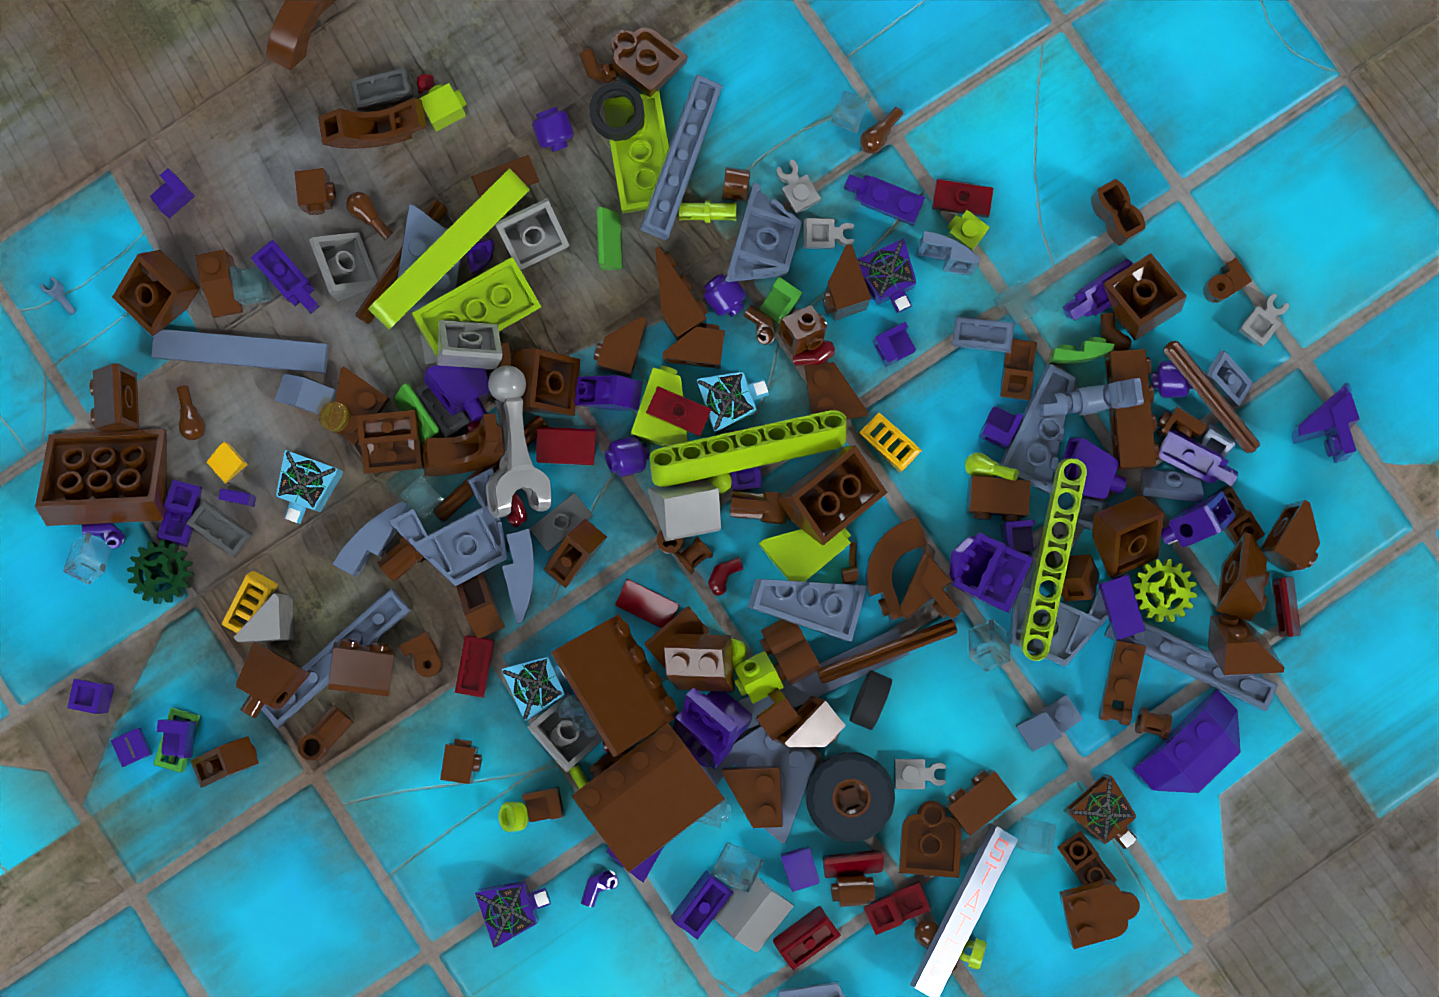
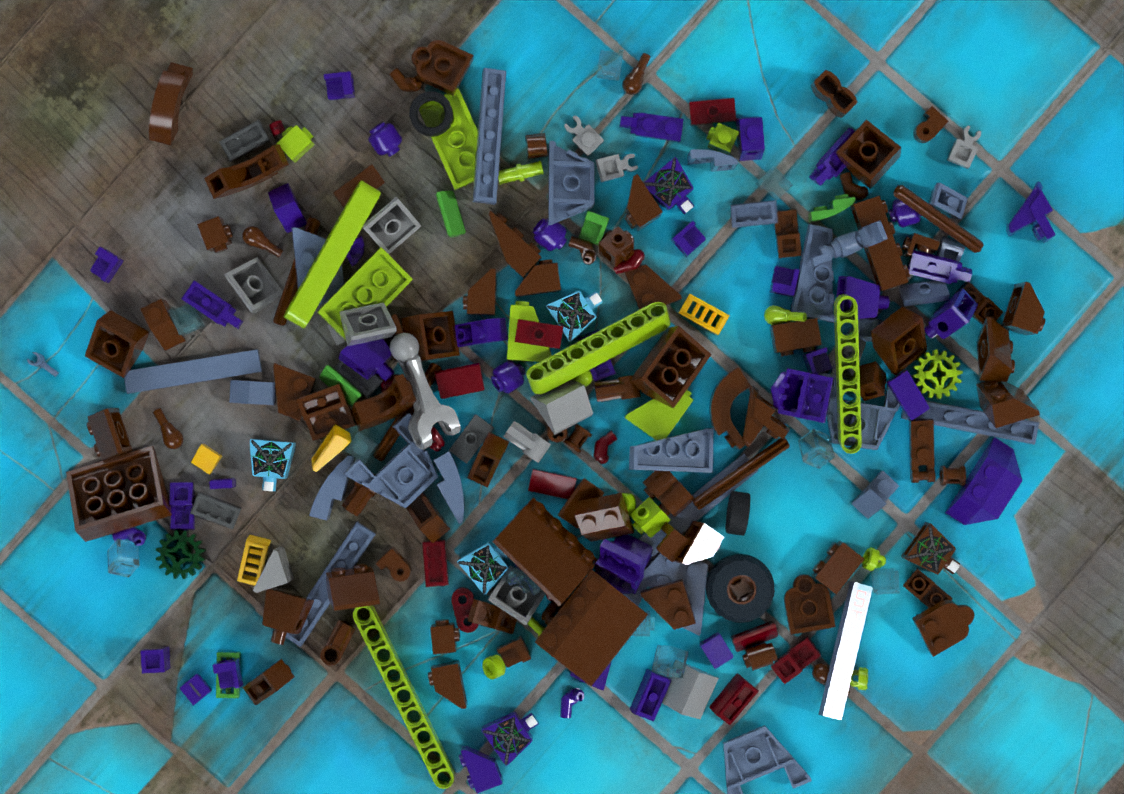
camera: 15 degrees left, 5 degrees up
(334, 416) = (279, 404): clear yellow tile -> none
(385, 837) = (405, 706): none -> lime beam
(389, 482) = (332, 445): none -> yellow slope
(411, 182) = (287, 208): none -> dark purple slope
(451, 822) = (449, 682): none -> reddish brown slope
(463, 944) = (482, 769): none -> dark purple slope
(498, 735) = (462, 610): none -> dark red plate
(515, 51) = (339, 85): none -> dark purple panel
(526, 752) = (491, 617): none -> reddish brown slope
(633, 547) = (530, 443): none -> light grey piece
(851, 573) = (699, 421): reddish brown hand -> none
(913, 773) = (782, 559): light grey plate -> none
(1001, 240) = (750, 138): none -> dark purple torso
(1025, 803) = (871, 559): none -> lime tile
(1286, 607) = (1032, 362): dark red slope -> none

